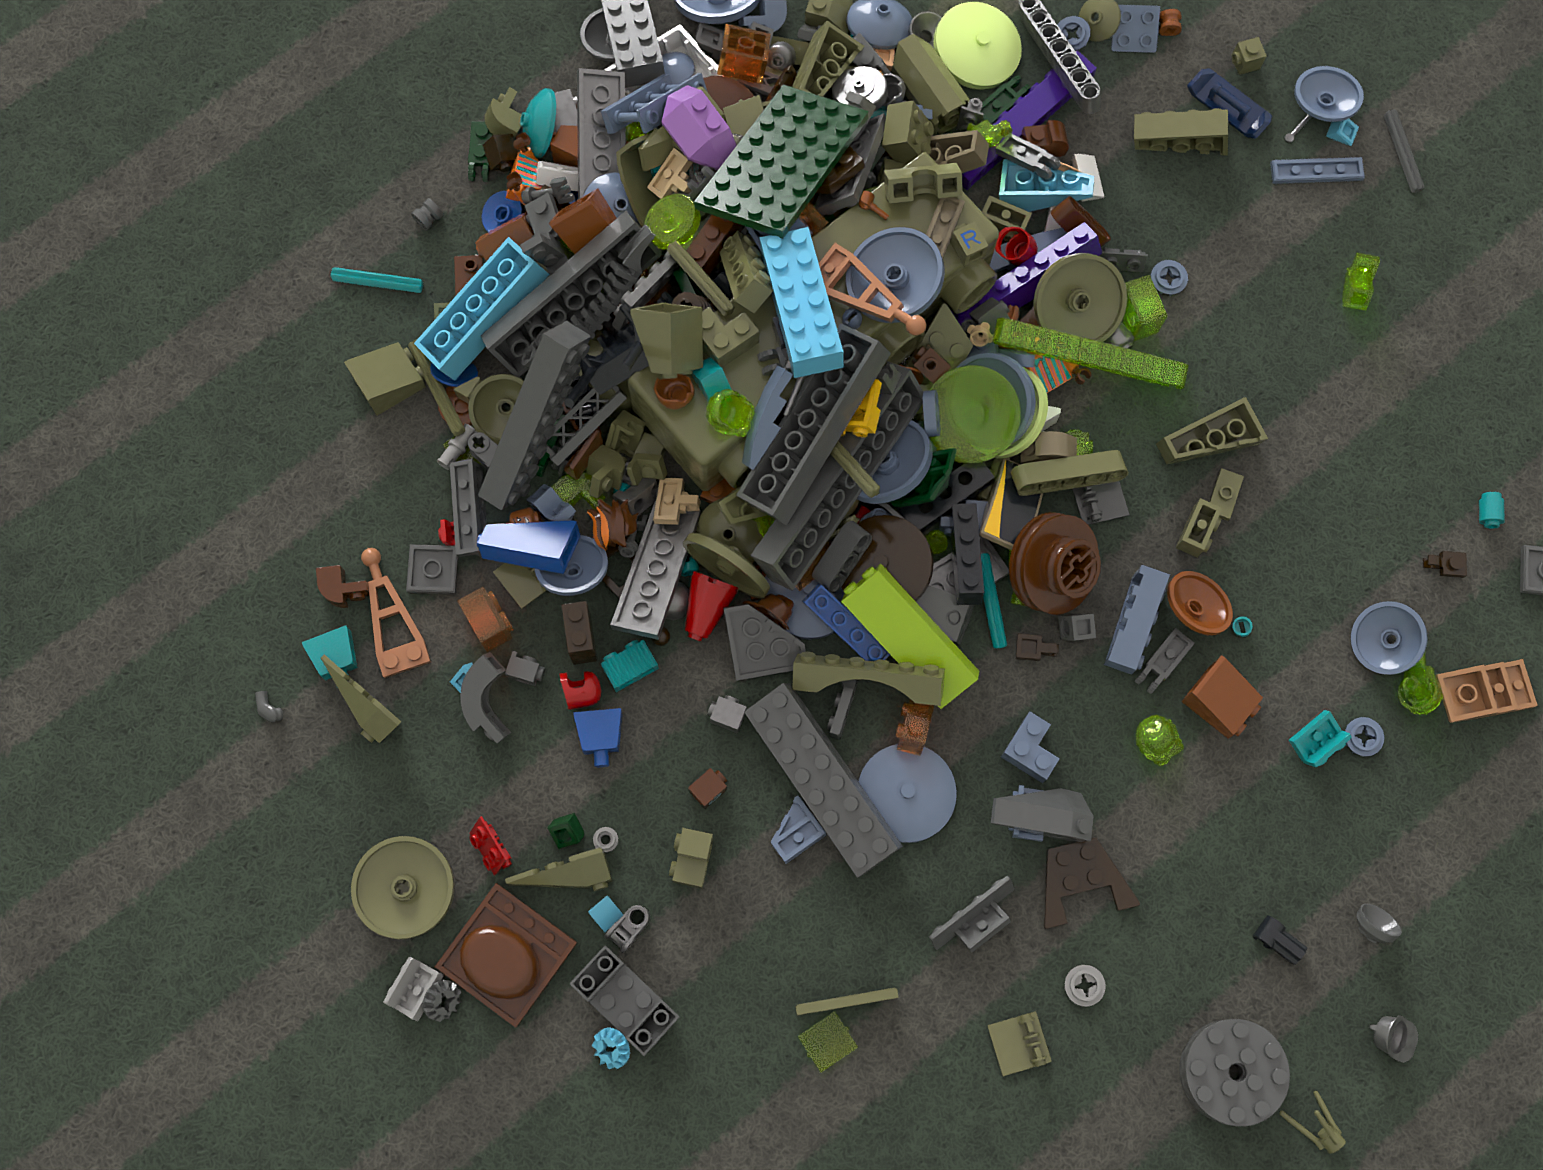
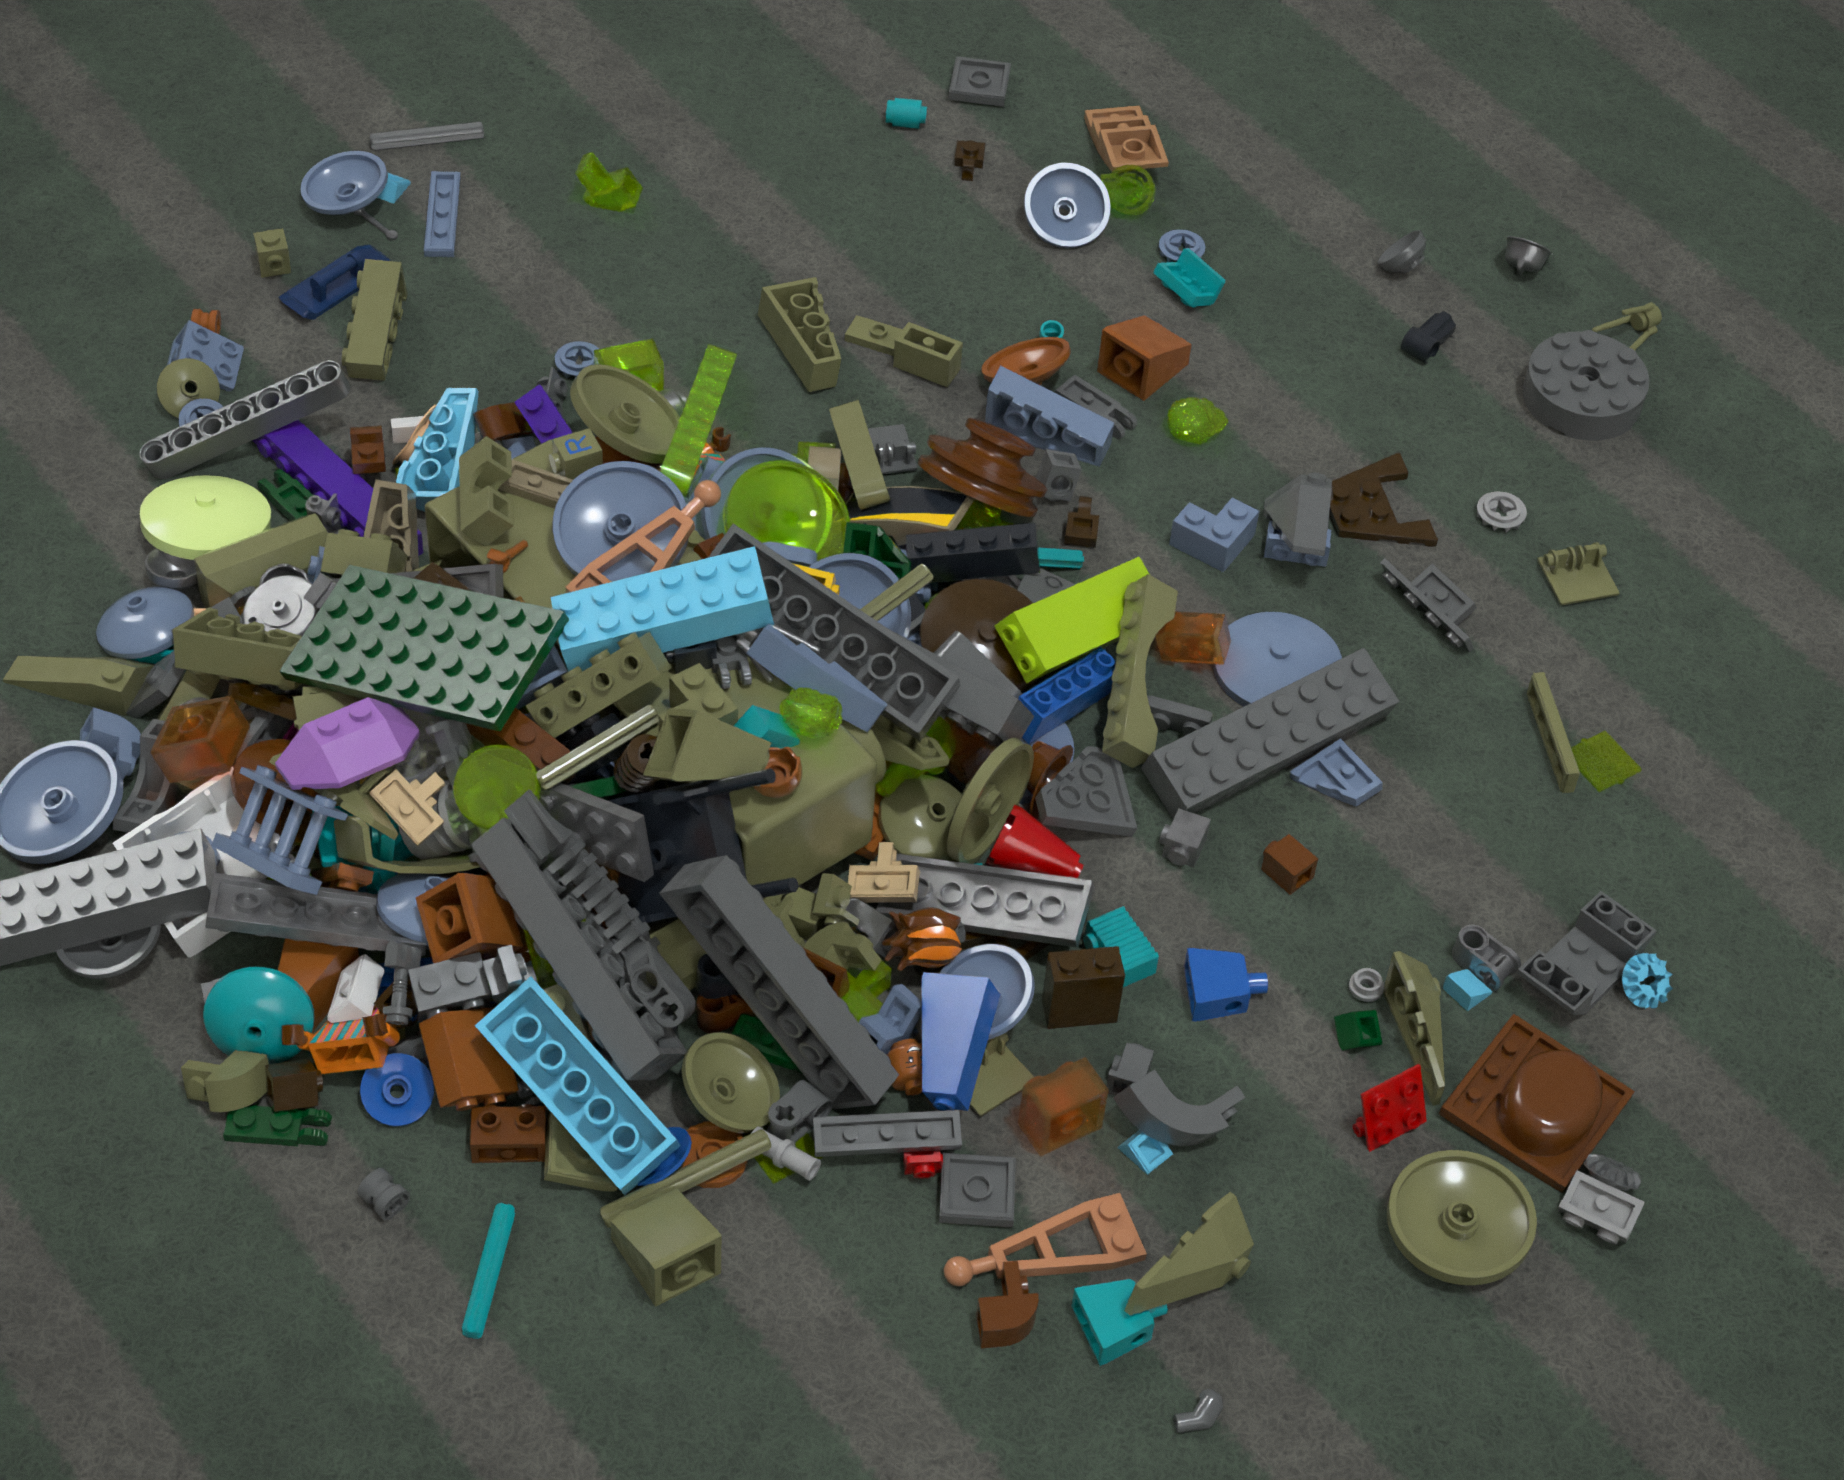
camera: 90 degrees left, 25 degrees down
(465, 390) = (699, 1125): olive slope -> none
(582, 696) = (1156, 992): red helmet -> none
(693, 857) = (1386, 881): olive brick -> none
(992, 133) = (359, 488): clear neon green hair -> none
(1027, 155) = (402, 455): dark grey hinge -> none

